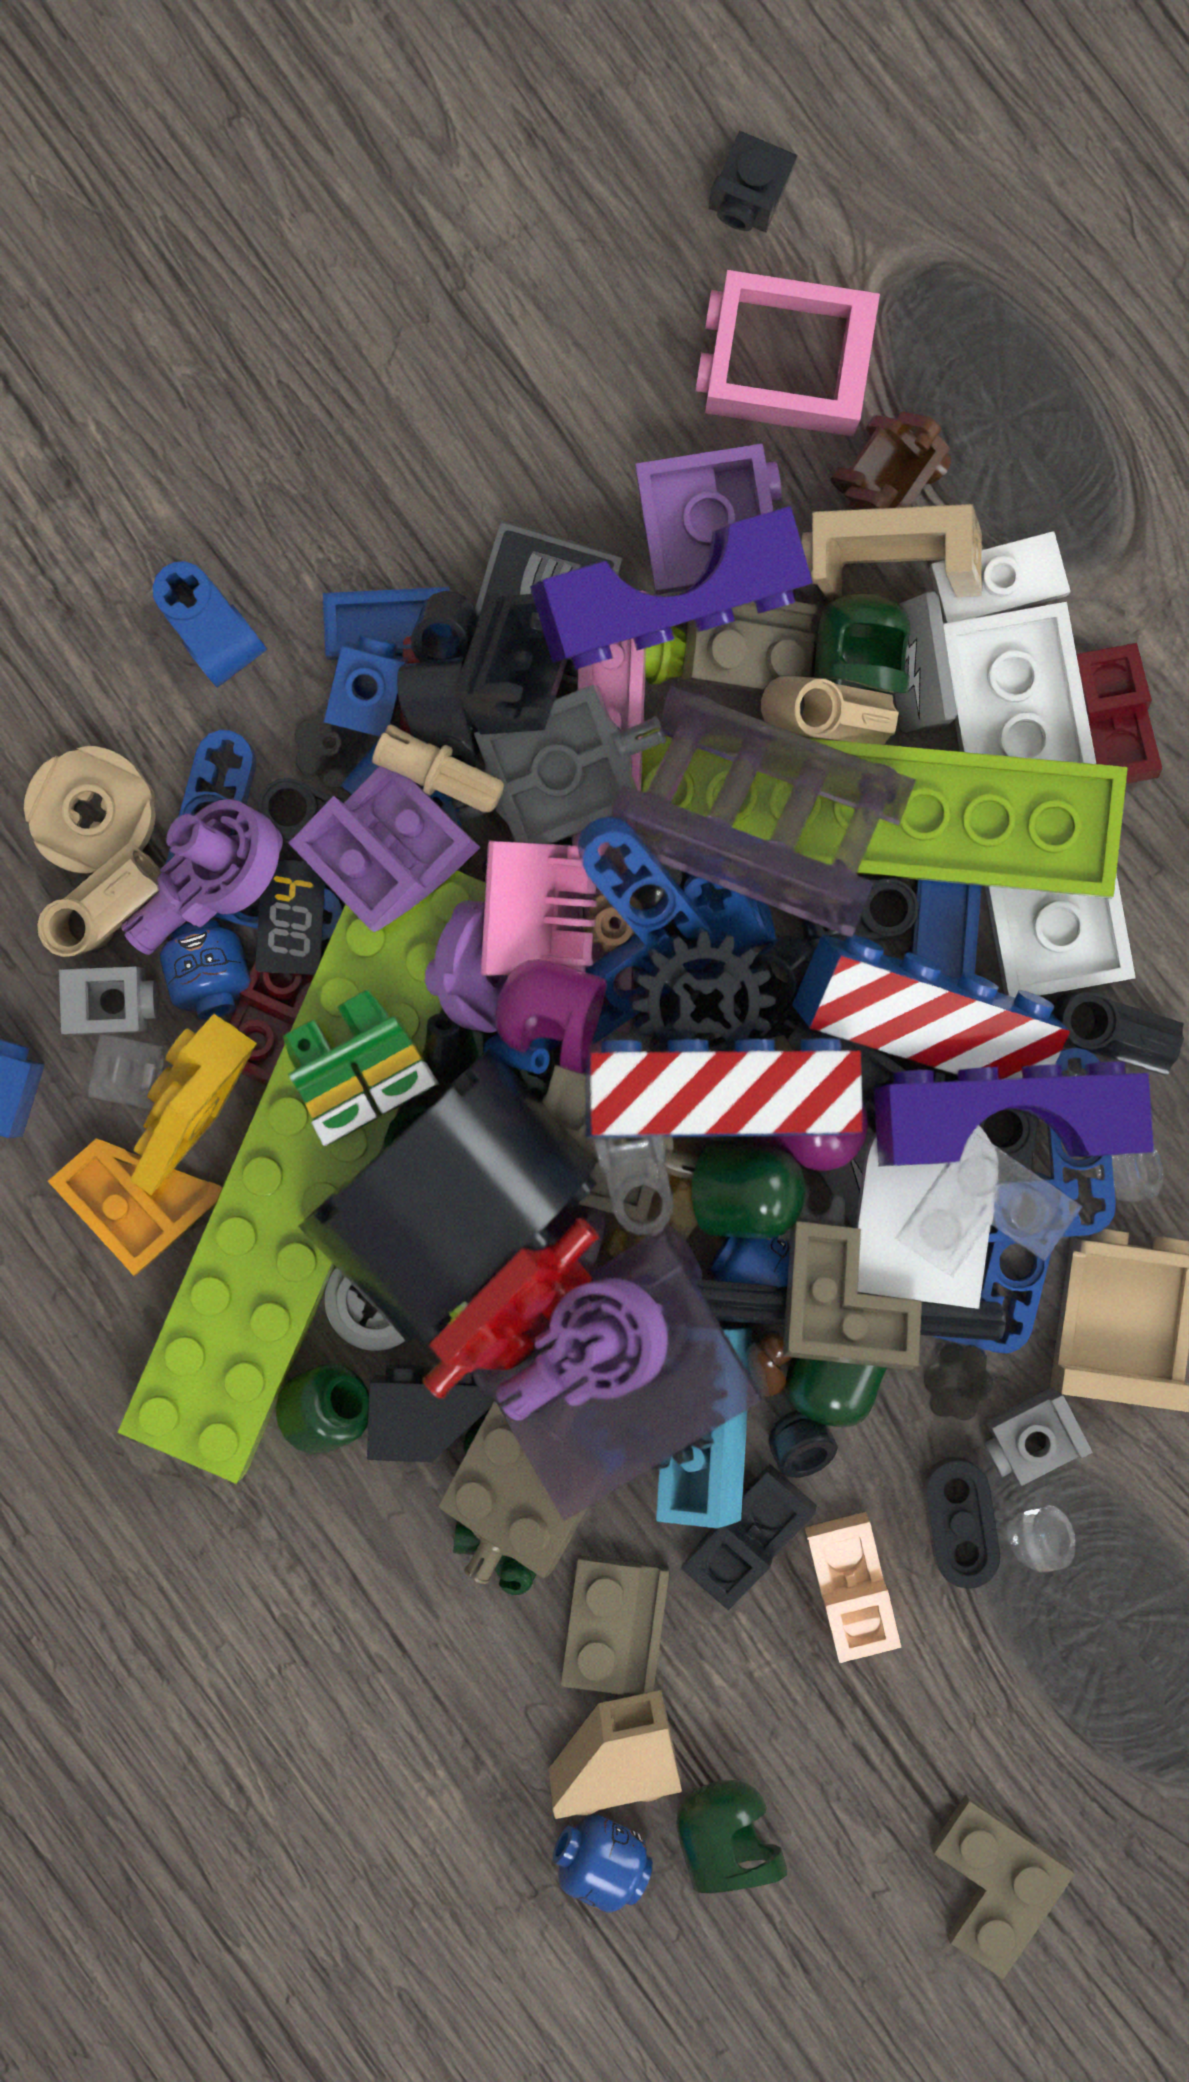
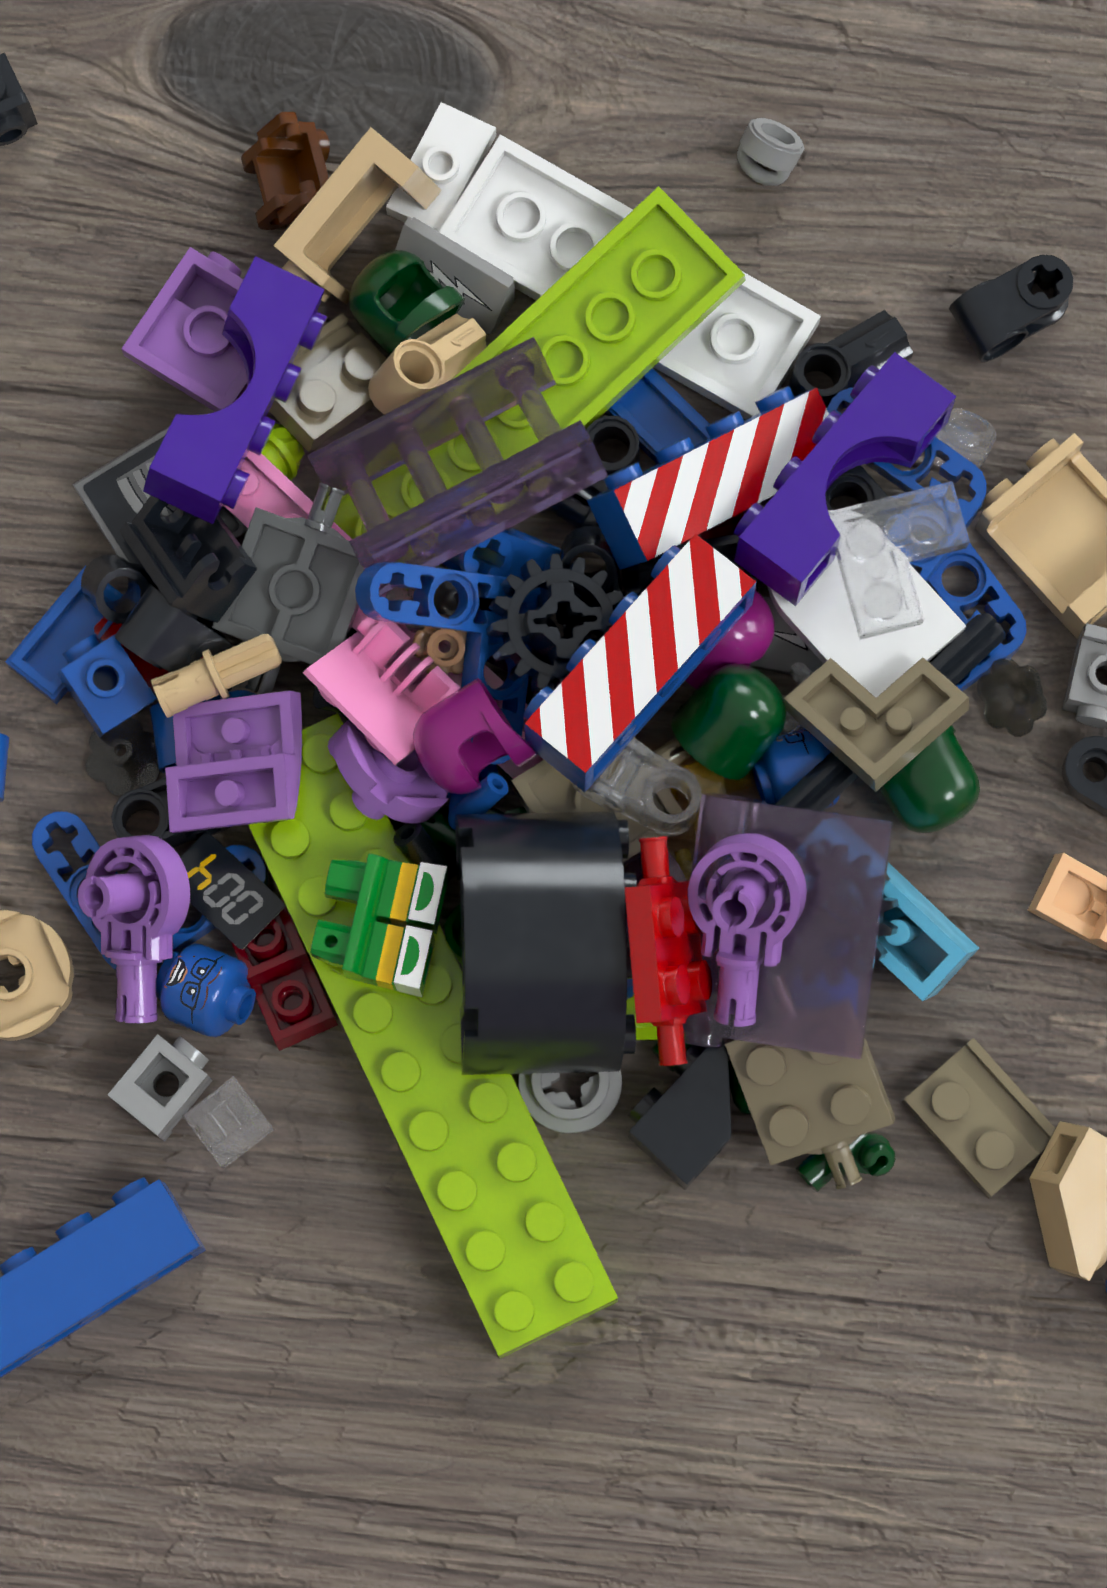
camera: 45 degrees left, 10 degrees down
(103, 902) = (86, 1016): tan piece -> none
(124, 1215) = (331, 1203): light orange wing -> none
(189, 1096) = (291, 1073): yellow plate -> none
(323, 1409) = (619, 1188): dark green head -> none
(739, 1554) = (1003, 968): black slope -> none
(764, 1363) = (872, 805): reddish brown arm -> none
(783, 408) = (214, 185): bright pink window -> none
(801, 1445) = (961, 854): black tile -> none
(1118, 711) = (611, 164): dark red slope -> none

